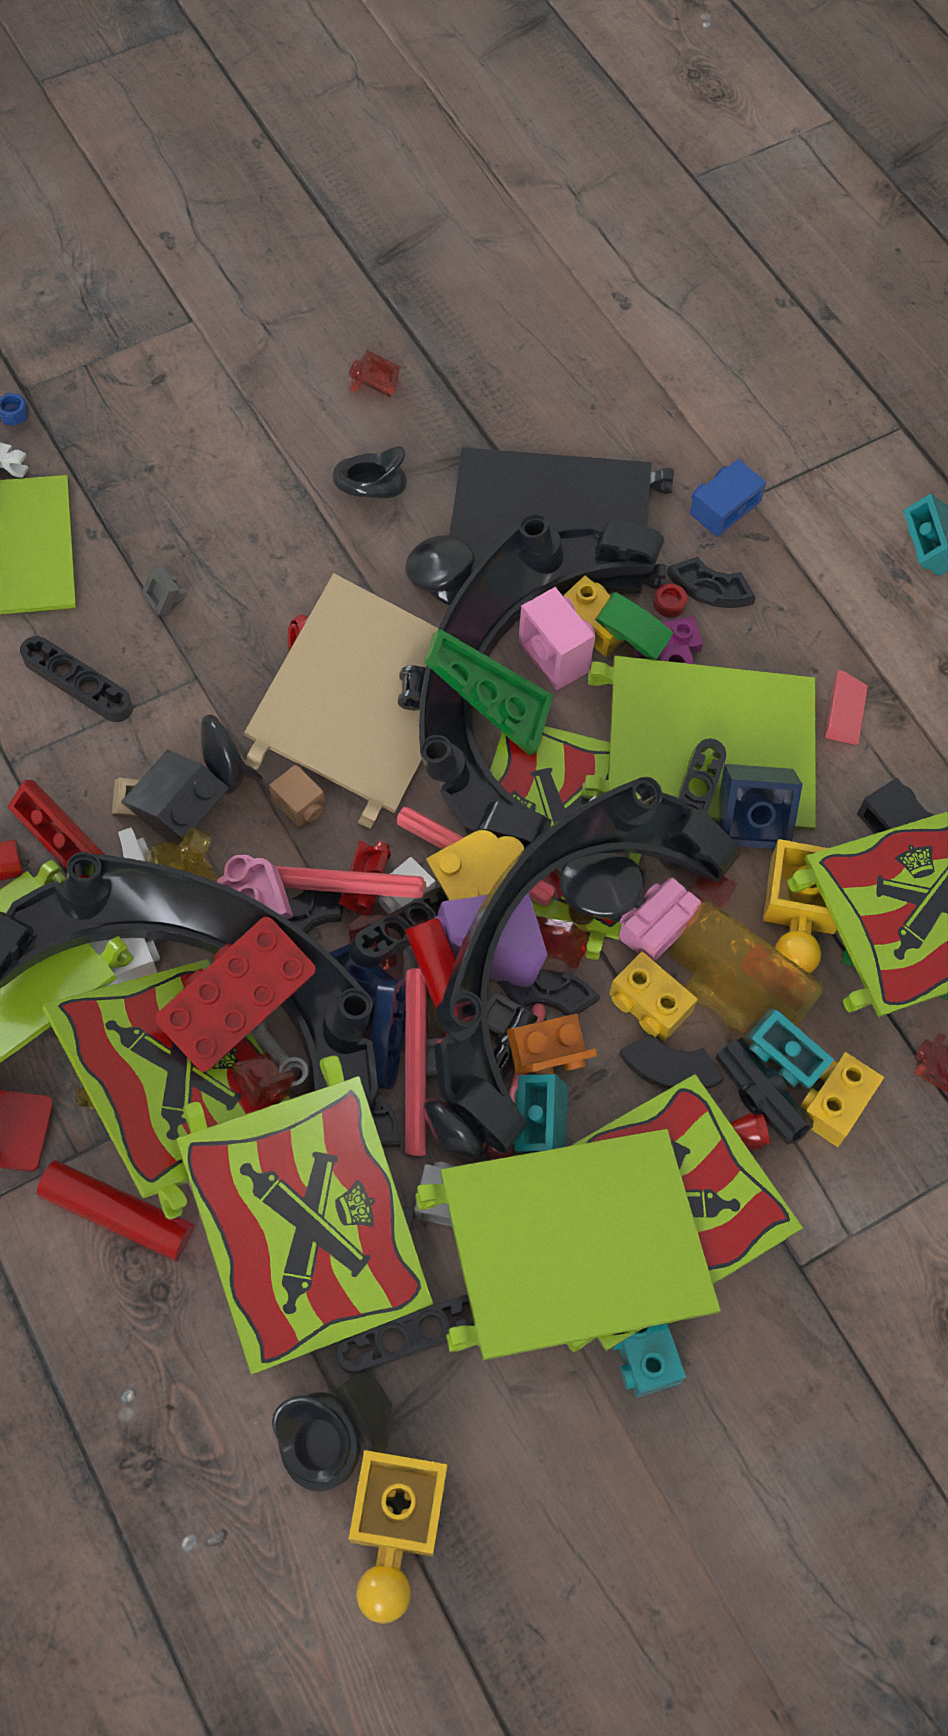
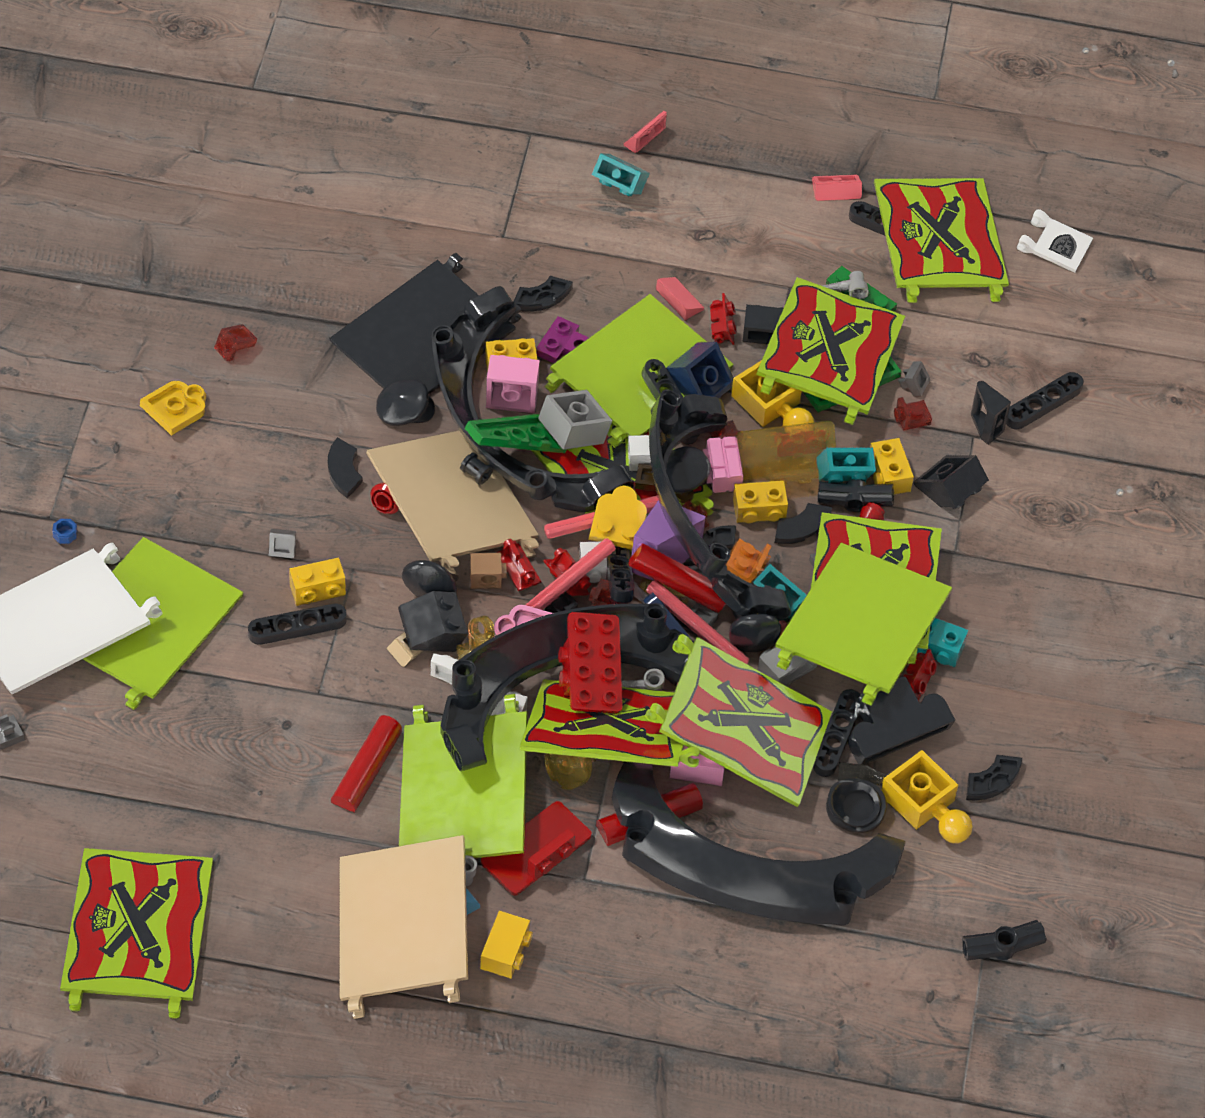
camera: 50 degrees left, 10 degrees down
(50, 823) = (401, 693): red brick -> none
(106, 1468) = (750, 884): none -> black panel
(138, 655) = (317, 581): none -> yellow brick
(249, 386) = (175, 405): none -> yellow plate
(262, 1080) = (647, 693): clear red bracket -> none
(311, 573) = (341, 467): none -> black tile
(337, 822) = (518, 565): none -> red hinge
(372, 474) = (308, 389): black piece -> none
(477, 1399) = (897, 722): none -> black brick
(509, 1583) = (994, 779): none -> black tile
(559, 1373) = (922, 670): none -> red hinge
(566, 729) = (575, 419): none -> light grey brick
(637, 626) = (543, 341): green slope -> none
(670, 600) = (532, 320): red tile -> none
(727, 497) = (497, 244): blue brick -> none
(869, 765) = (723, 312): none -> red hinge
(892, 1184) = (952, 480): none -> black slope

